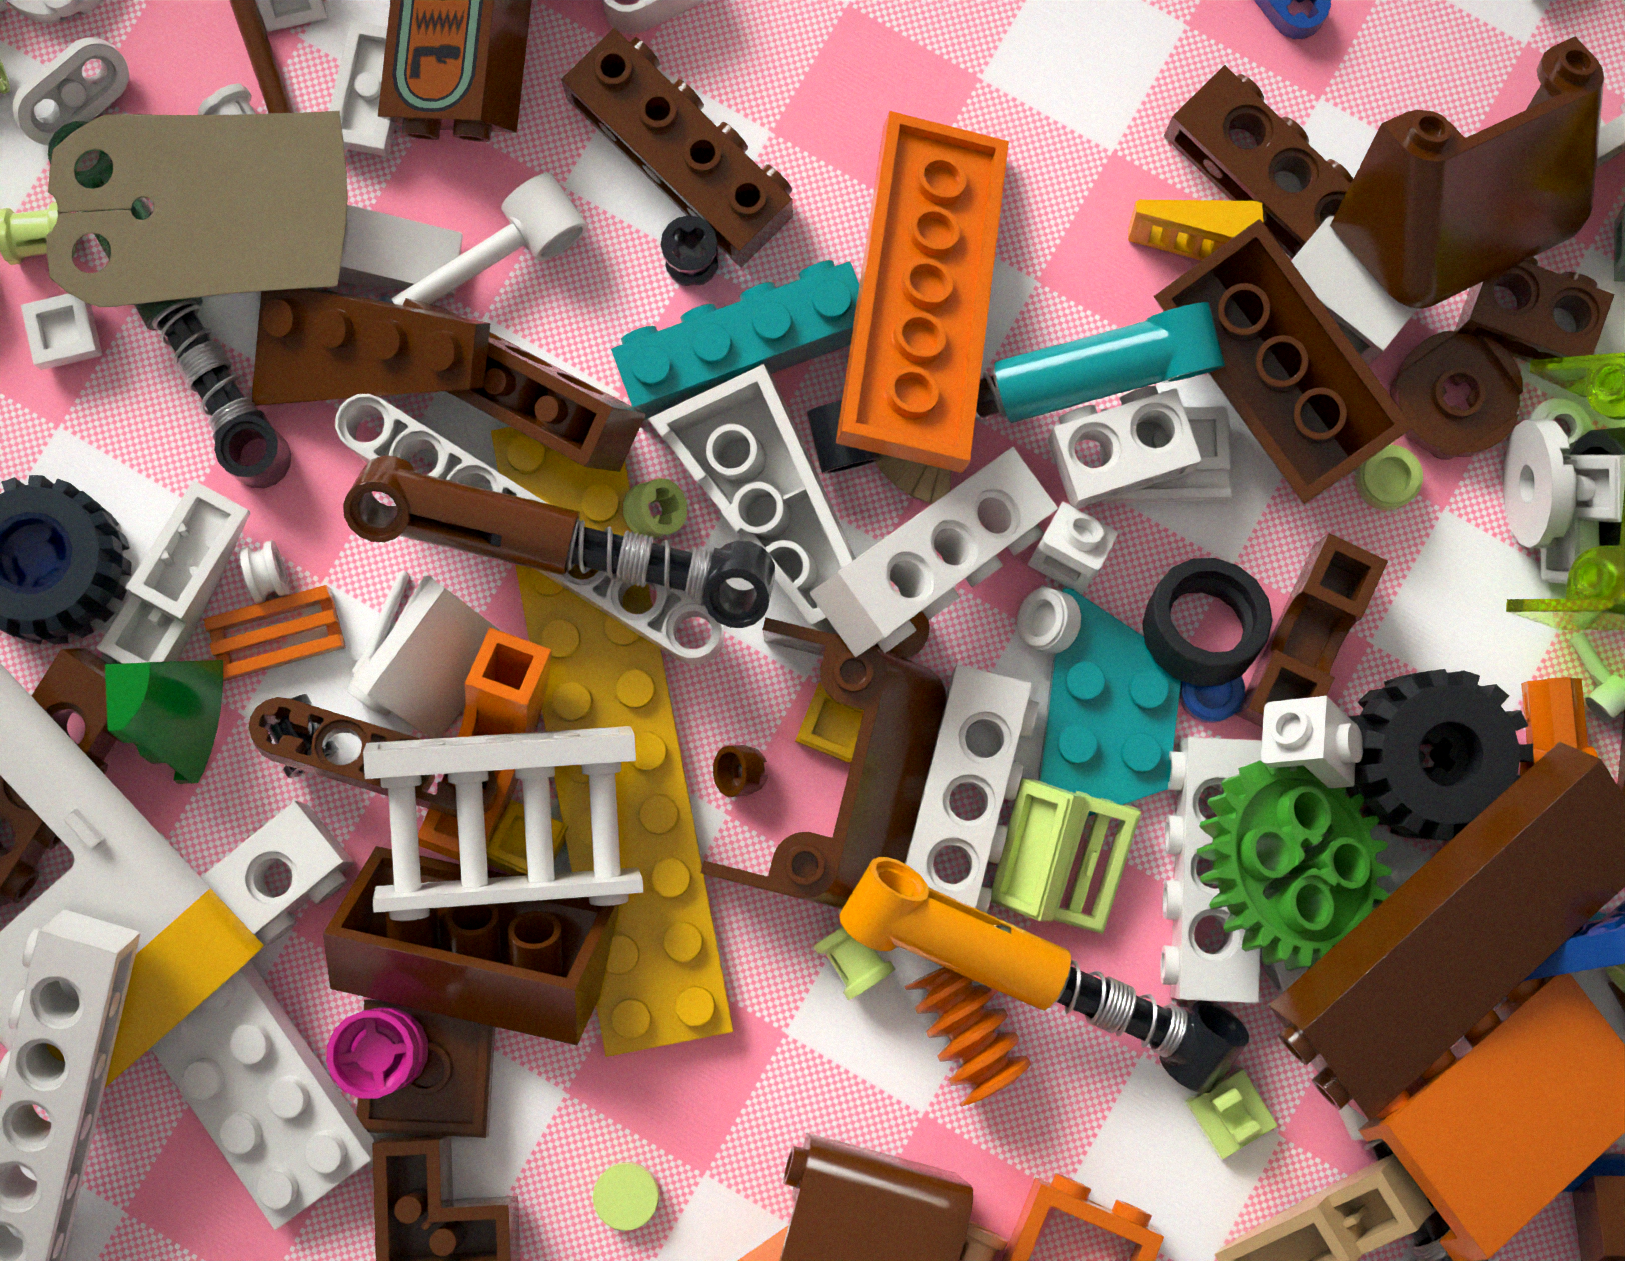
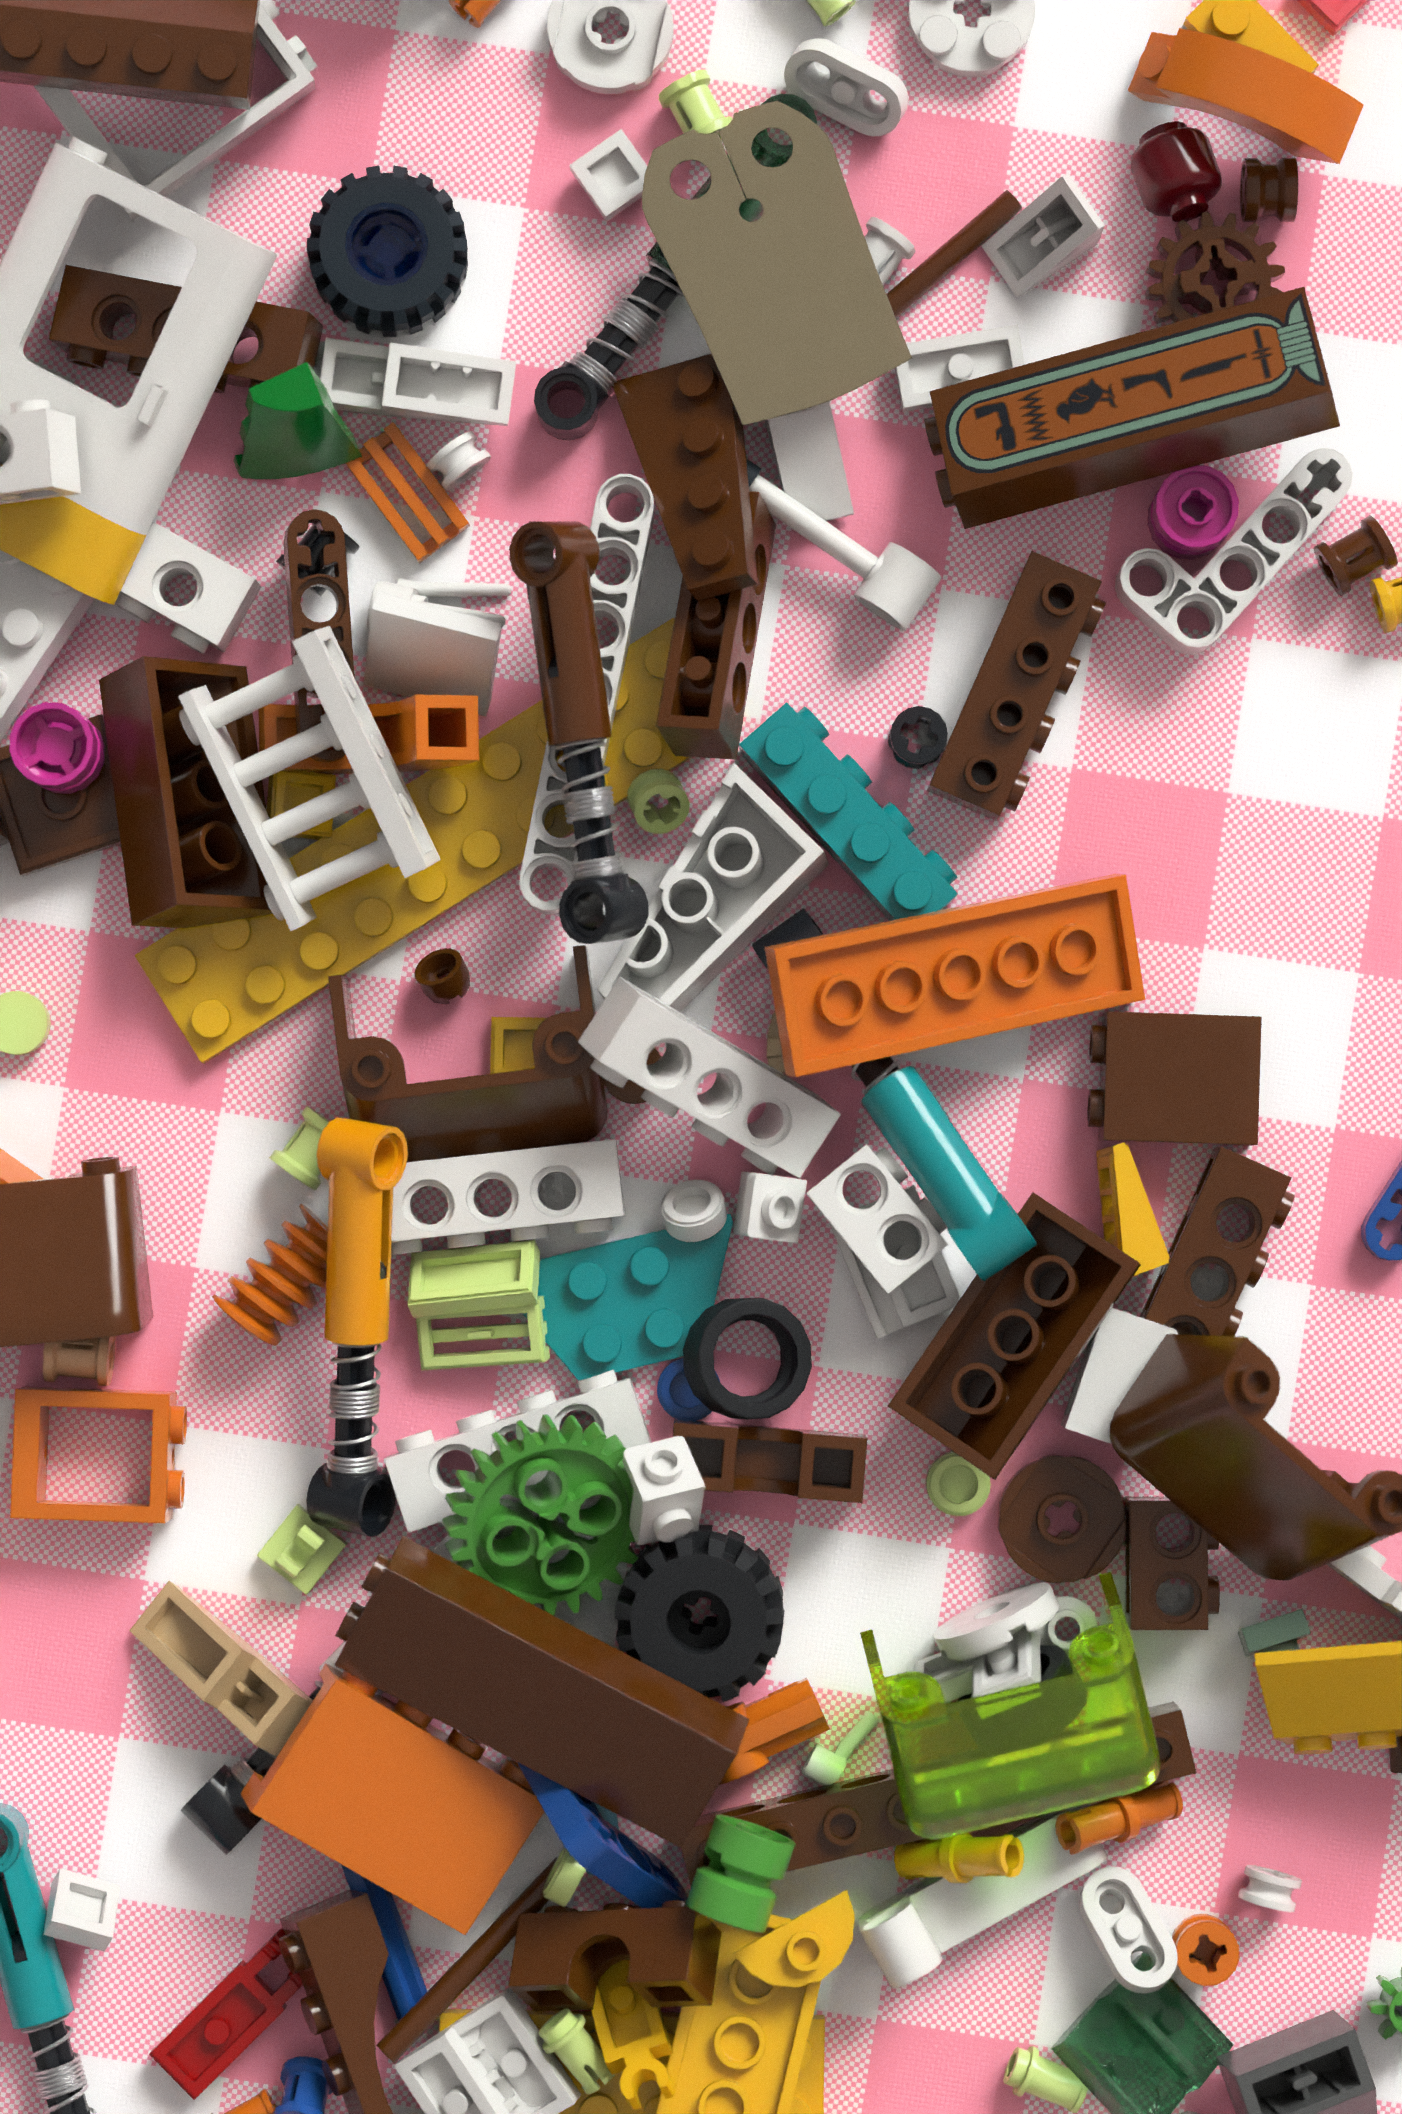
camera: 75 degrees right, 5 degrees up
(1092, 138) = (1176, 1078): none -> reddish brown panel

